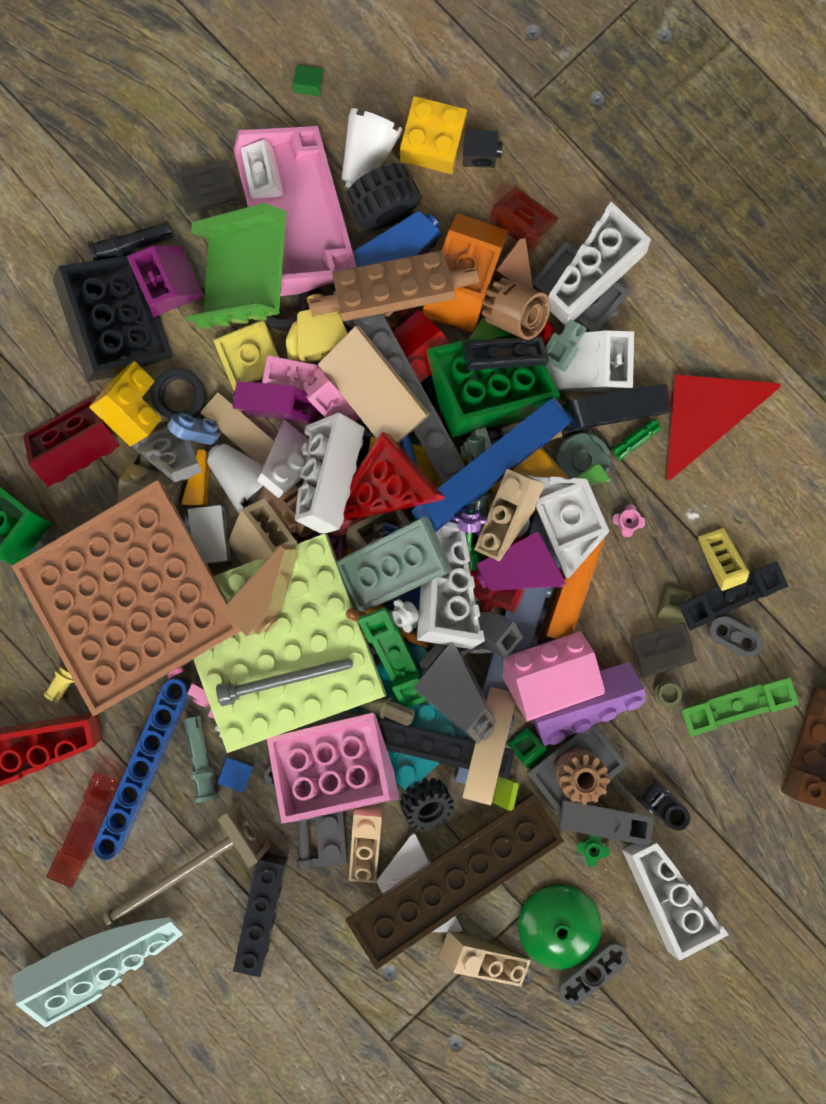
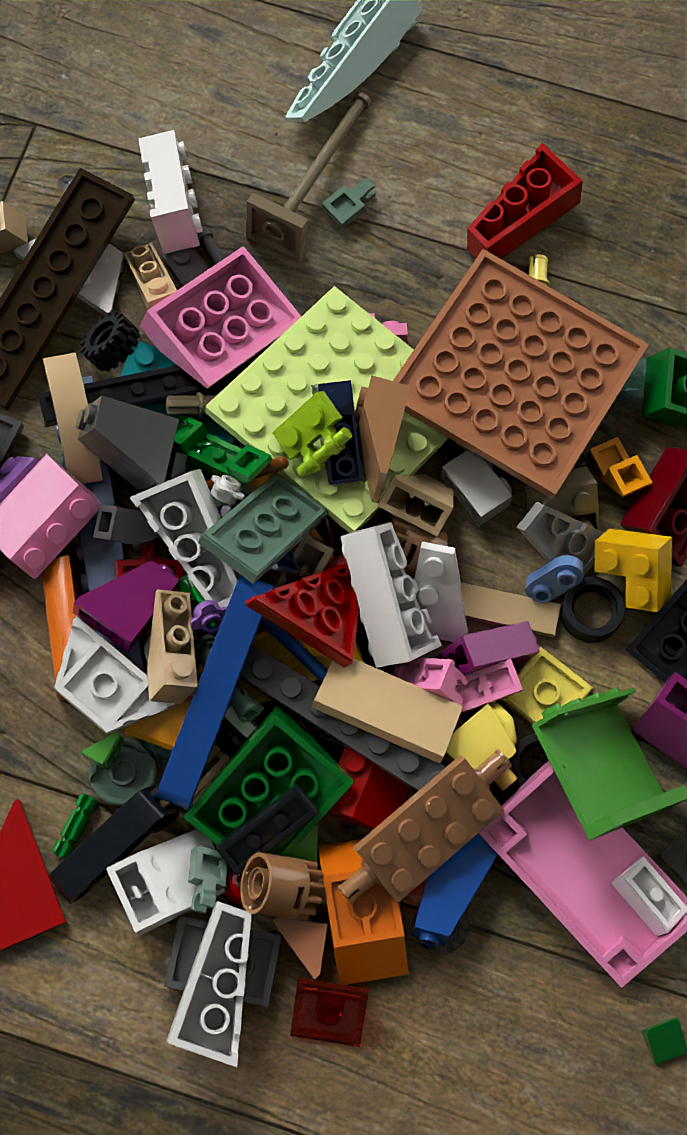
camera: 145 degrees right, 15 degrees down
(84, 830) = (432, 160): clear red slope -> none
(95, 488) = (618, 470): none -> light orange slope
(133, 777) = (410, 228): blue beam -> none
(175, 828) = (348, 204): none -> sand green plate
(197, 487) = (509, 518): light orange slope -> none
(201, 772) = (351, 265): sand green pin -> none
(228, 692) = (363, 333): dark grey piece -> none
(235, 774) = (316, 280): blue tile -> none
(236, 474) = (483, 557): white cone -> none
(260, 915) = (219, 168): black brick -> none
(294, 618) = (346, 465): none -> dark blue slope
(313, 914) = (169, 193): none -> white wedge
(316, 628) = (305, 427): none -> lime plate
(367, 144) = (551, 989): white cone -> none
(383, 196) = (498, 935): black tyre -> none
(433, 135) = (485, 1048): yellow brick -> none
(481, 148) = (422, 1065): black brick -> none
(505, 792) = (30, 389): lime slope -> none
(528, 748) = (34, 445): green slope -> none
(636, 520) = (35, 724): bright pink plate -> none

